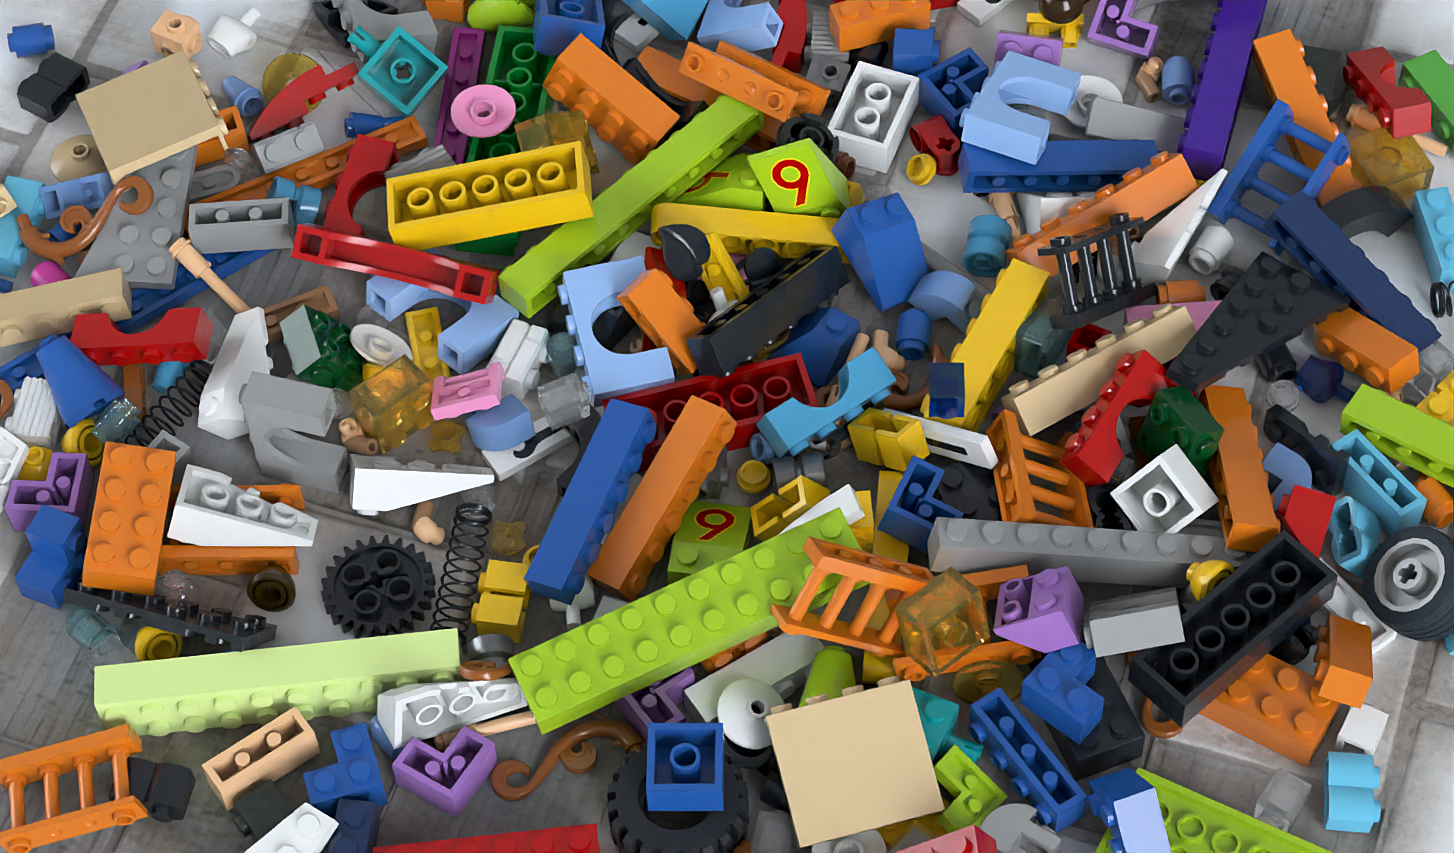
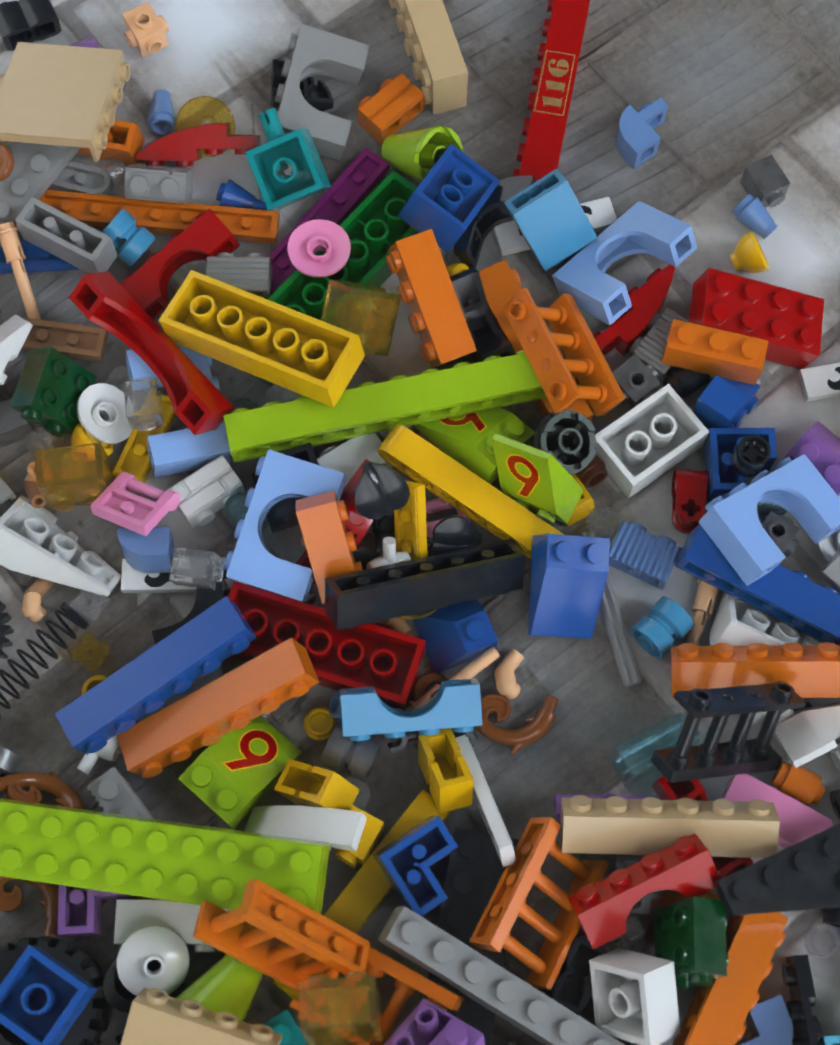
camera: 30 degrees right, 15 degrees up
(233, 35) = (192, 51): white piece -> none
(410, 319) = (143, 404): none -> clear brick
(443, 430) = (105, 536): clear yellow plate -> none
(502, 600) = (28, 722): yellow piece -> none
(913, 334) = (543, 672): blue brick -> none
(921, 169) = (658, 514): yellow plate -> none
(934, 202) = (643, 554): none -> medium blue brick
(946, 390) = (506, 775): clear blue brick -> none
(947, 296) = (595, 663): medium blue brick -> none
(967, 72) = (753, 449): none -> black wheel
(991, 341) = (580, 743): yellow brick -> none

